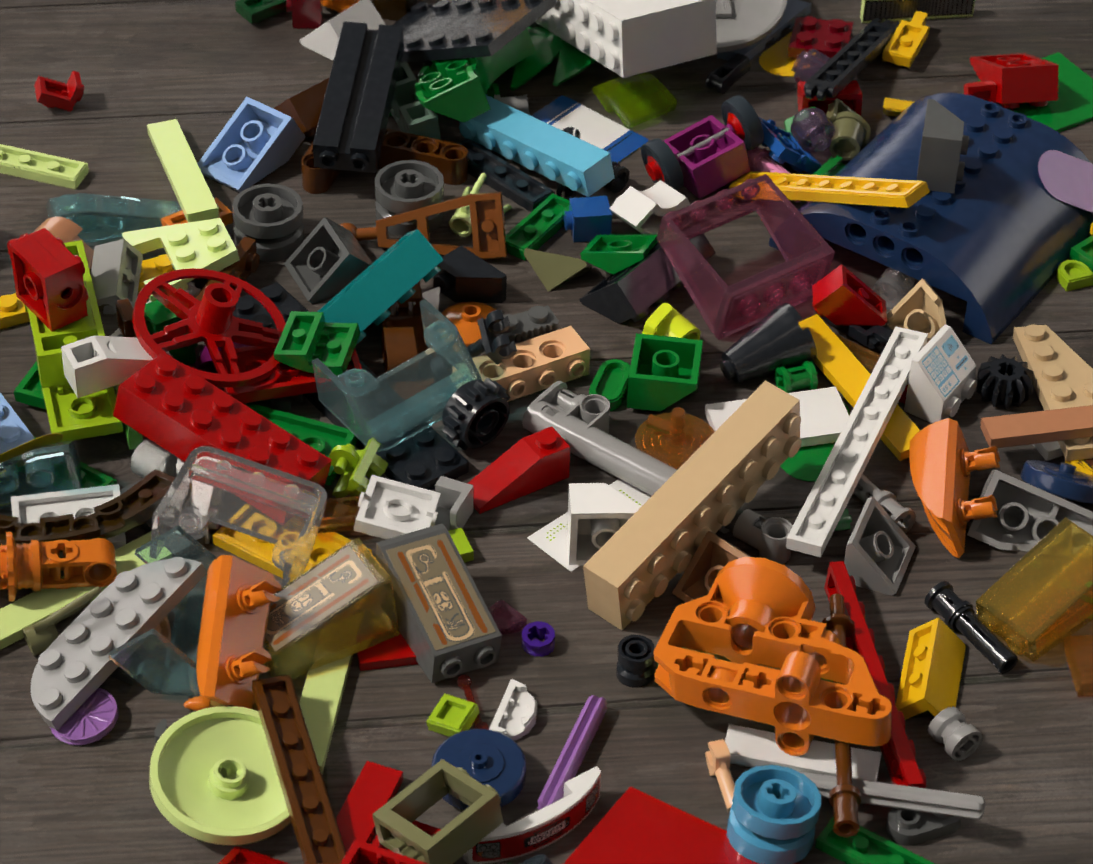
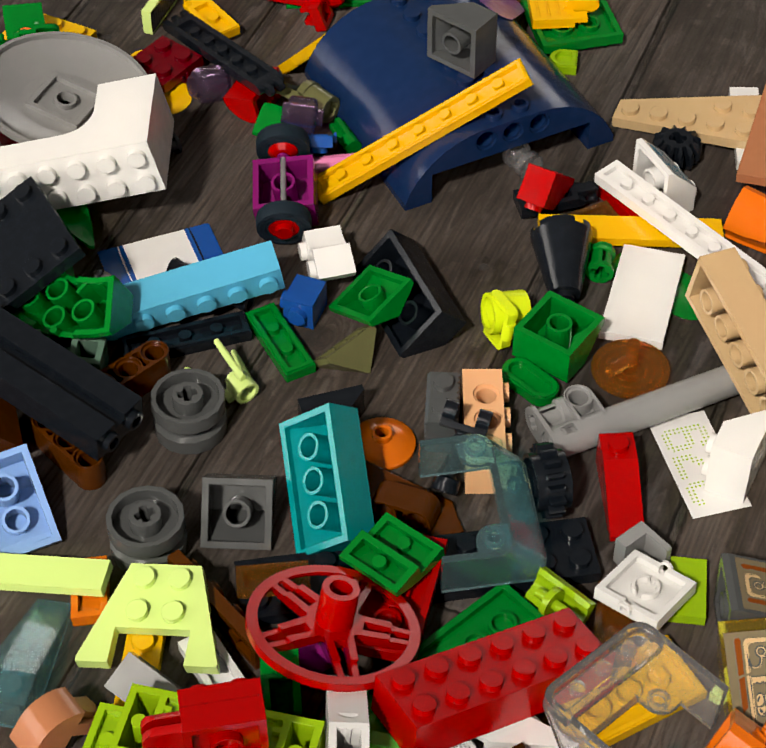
camera: 60 degrees left, 5 degrees up
(257, 308) = (251, 576): none -> clear orange tile
(486, 225) = (287, 379): dark orange plate -> none
(635, 98) = (154, 208): clear neon green slope -> none
(750, 300) = (470, 185): clear pink windscreen -> none
(919, 311) = (577, 156): tan slope -> none

